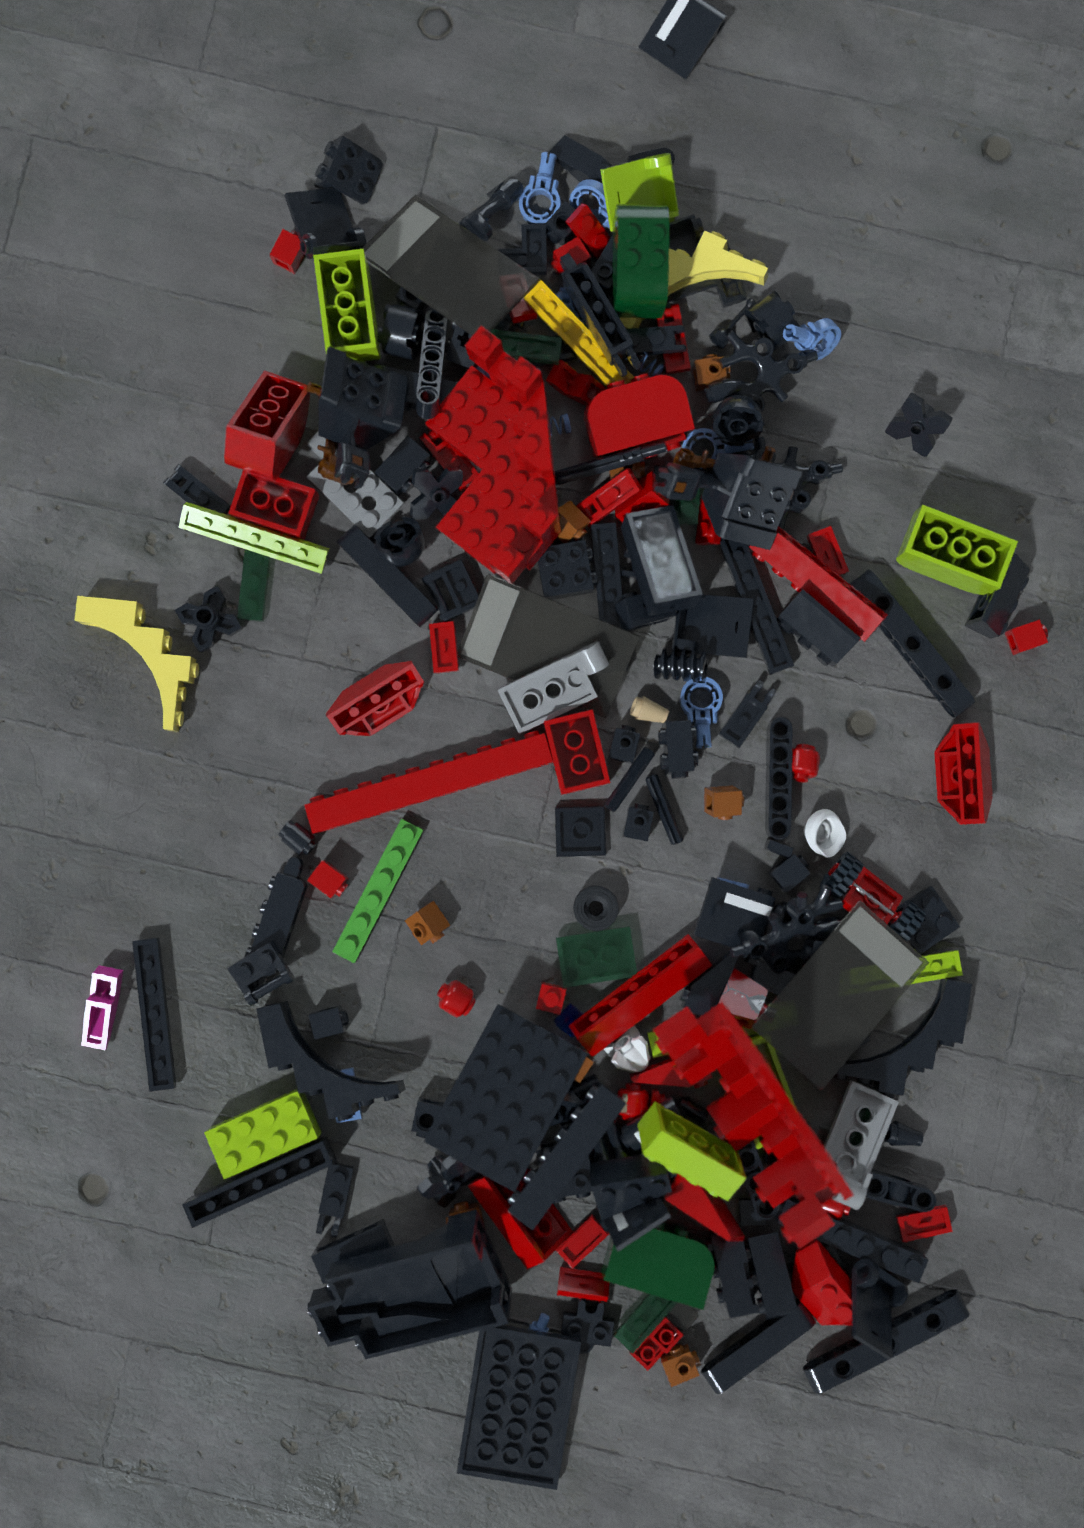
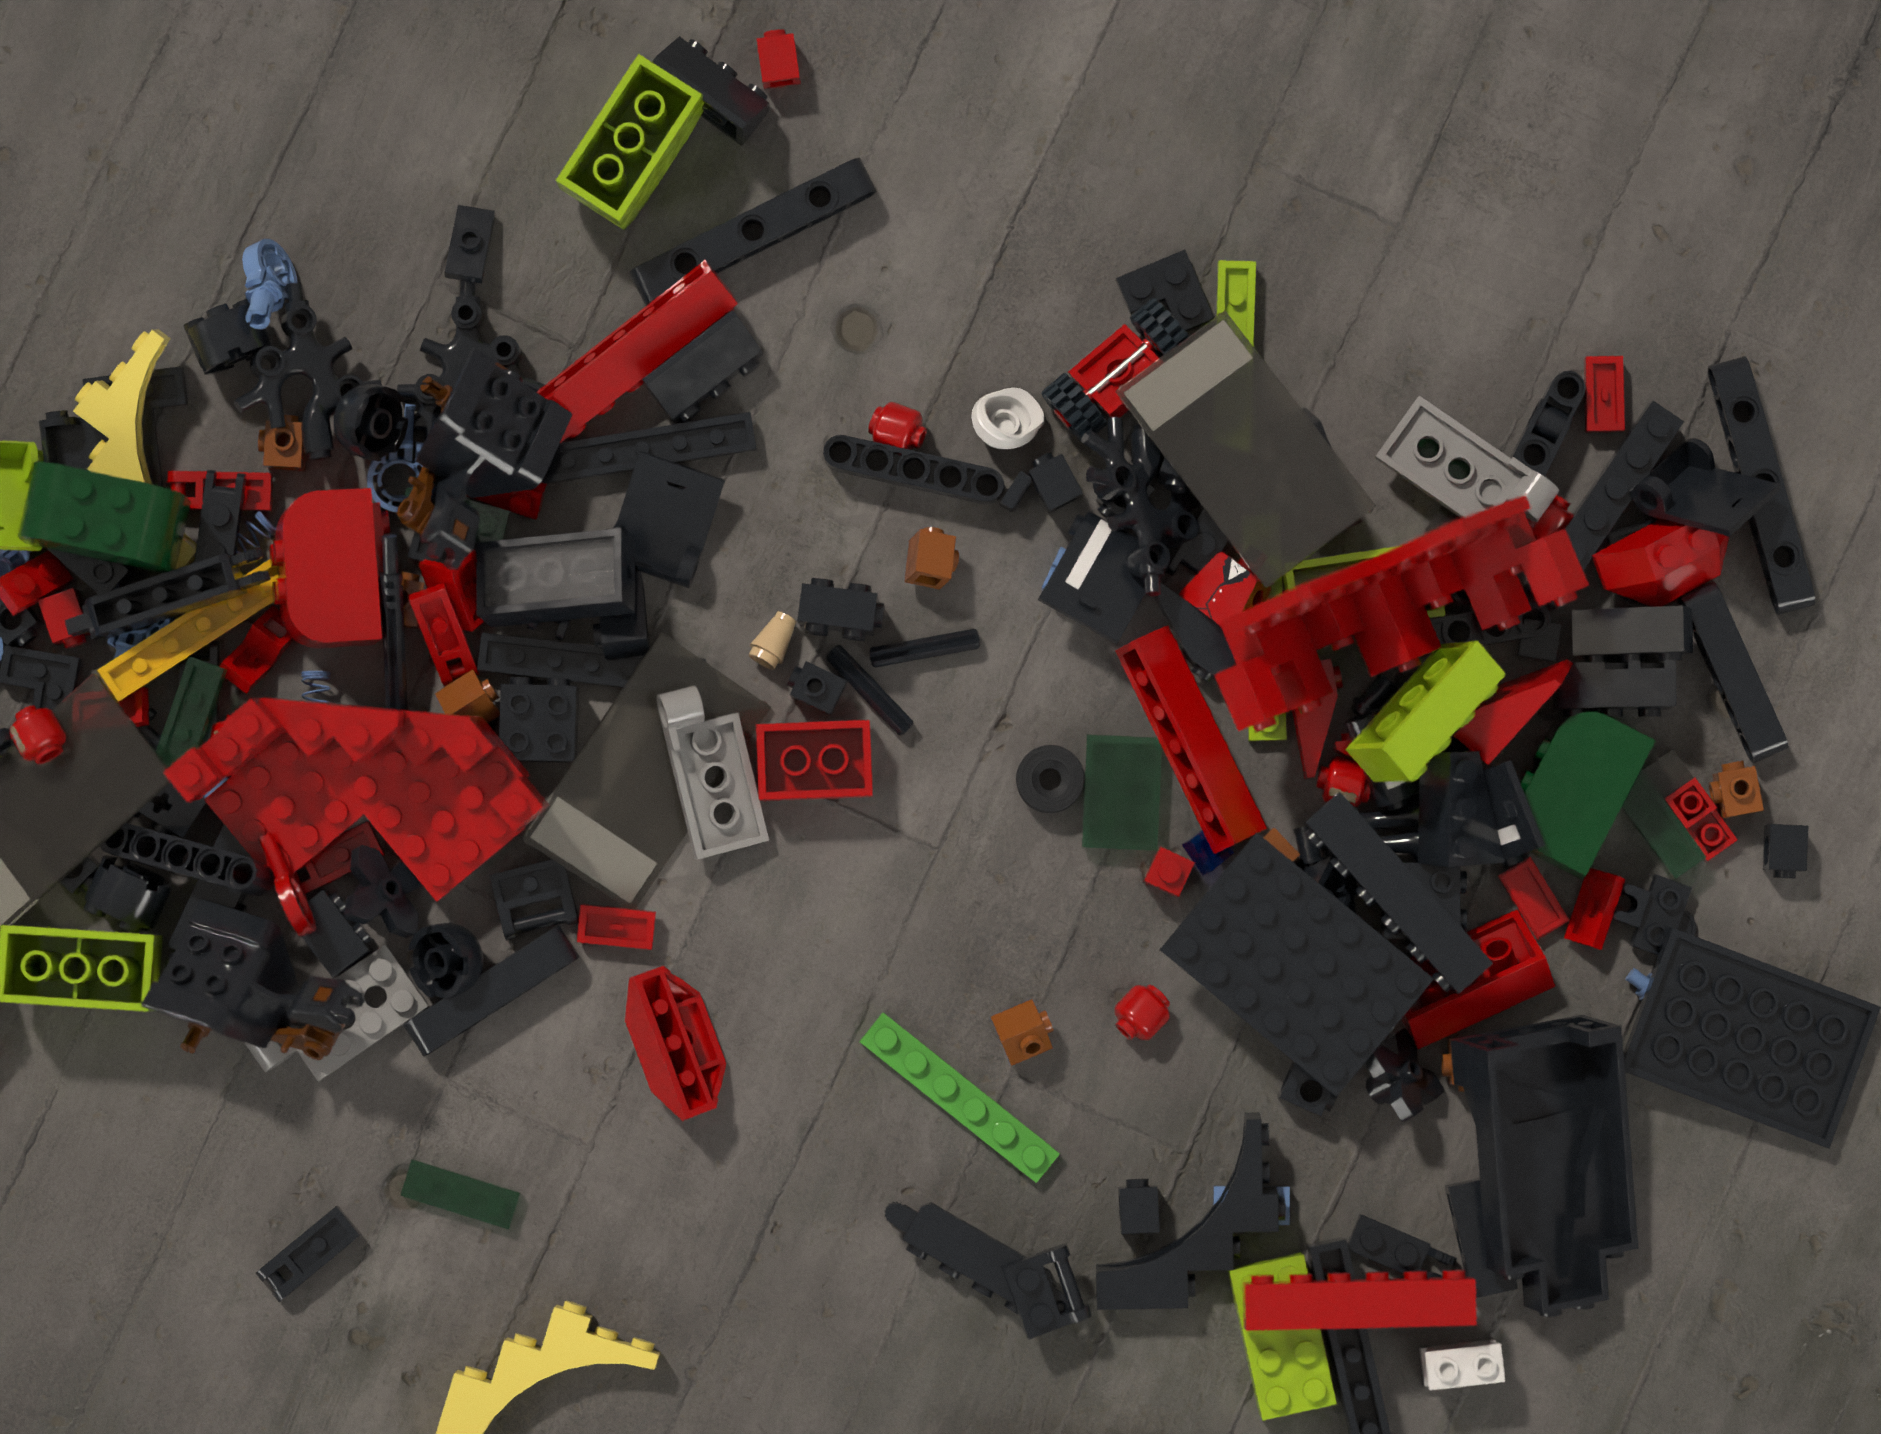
camera: 80 degrees left, 0 degrees up
(196, 615) = (492, 1290): black plant -> none
(253, 537) = (394, 1178): lime plate -> none
(266, 1256) = (1462, 1364): none -> white hips
(267, 426) = (233, 1120): red brick -> none
(274, 504) = (349, 1138): red brick -> none
(291, 1184) = (1359, 1302): none -> red brick
(297, 838) = (857, 1201): black brick -> none
(328, 879) = (929, 1166): red brick -> none
(422, 430) = (288, 889): none -> red piece
(428, 783) = (815, 989): red brick -> none
(491, 251) = (37, 734): none -> red head
(580, 831) = (932, 779): black tile -> none
(629, 1051) = (1270, 771): white brick -> none
(638, 822) = (936, 690): black brick -> none
(648, 1404) = (1785, 849): none -> black brick
(678, 666) = (717, 580): black piece -> none
(702, 724) = (810, 564): medium blue pin -> none
(719, 334) = (227, 415): black hinge -> none
(746, 716) = (810, 498): black hinge -> none
(826, 548) = (589, 325): red plate -> none
(864, 464) = (469, 244): none -> black plate
(902, 1135) = (1470, 399): black cone -> none
(919, 423) = (426, 149): black plant -> none
(943, 1022) = (1320, 303): black arch -> none
(964, 774) = (962, 195): red wedge -> none

